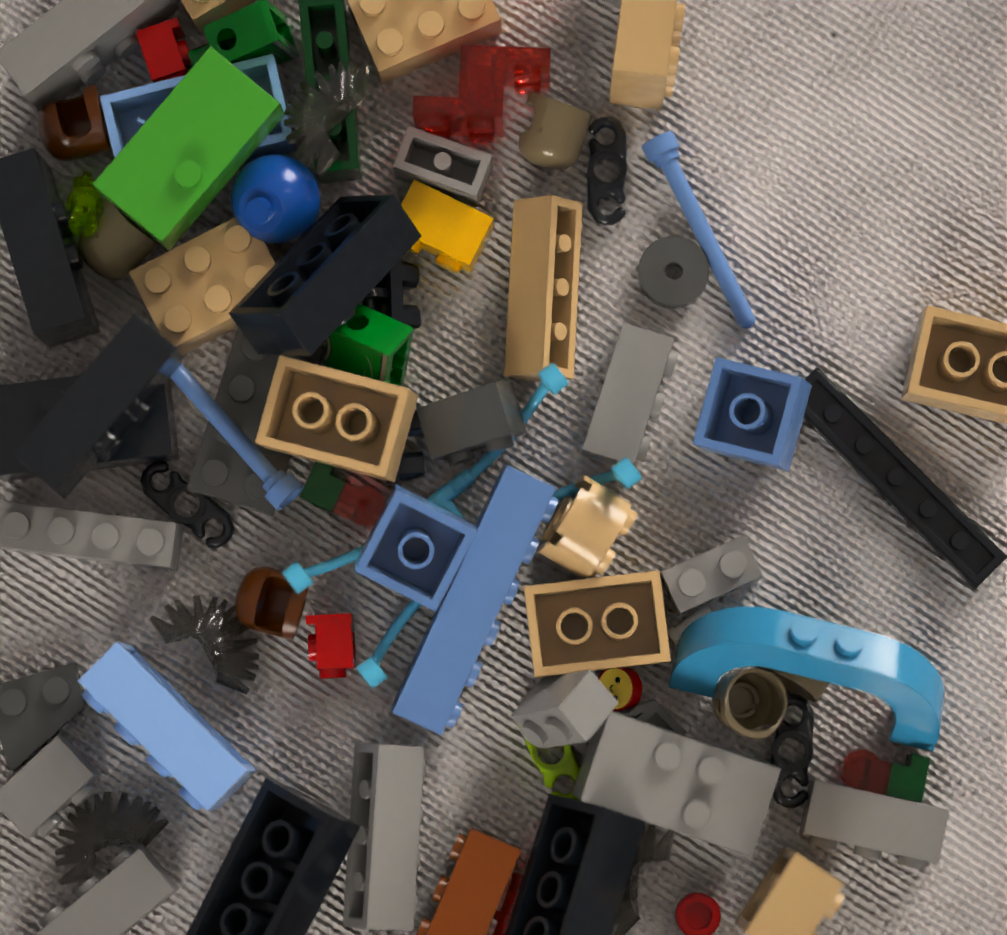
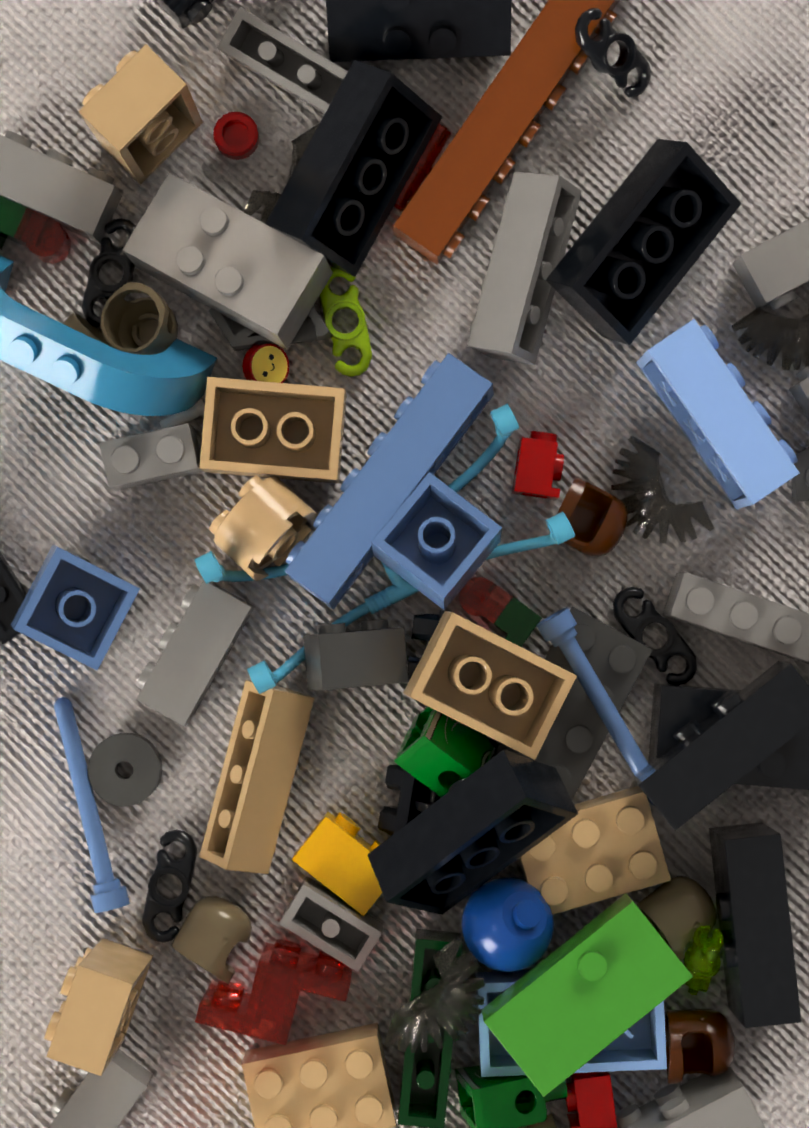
camera: 175 degrees left, 5 degrees up
(564, 709) = (321, 348): light grey brick -> none

